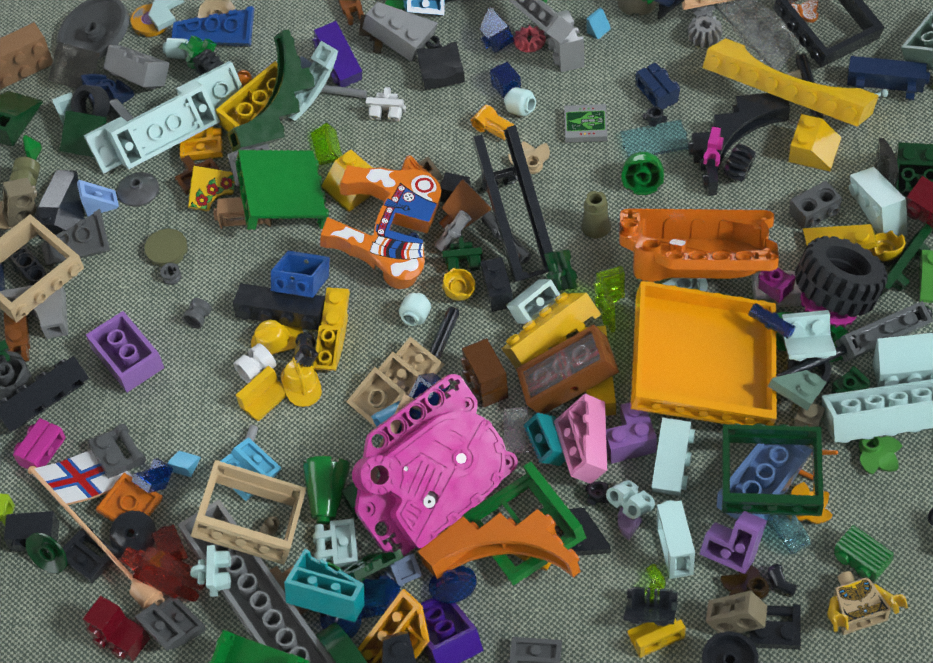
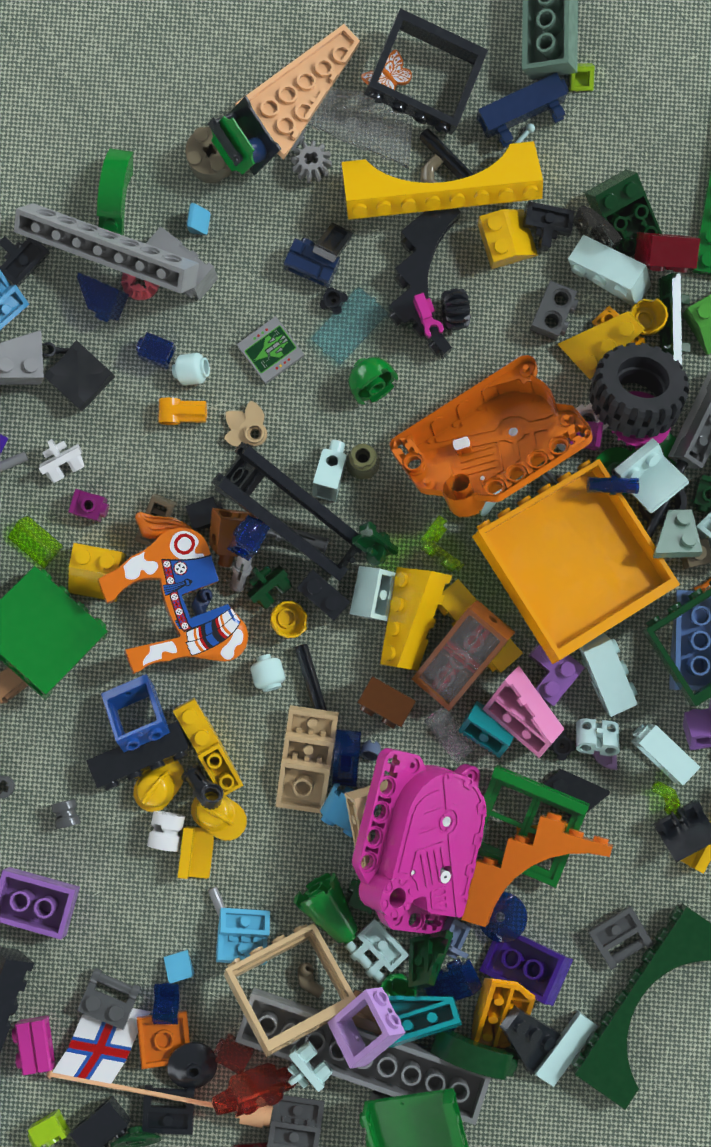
camera: 40 degrees left, 30 degrees up
(280, 560) = (348, 1037): none -> lavender window
(380, 141) = (78, 503): none -> magenta brick
(470, 198) = (248, 537): none -> clear blue head
(563, 211) = (330, 471): none -> light aqua torso
(681, 79) = (333, 242): none -> black tile
(852, 150) = (548, 222): none -> black hinge

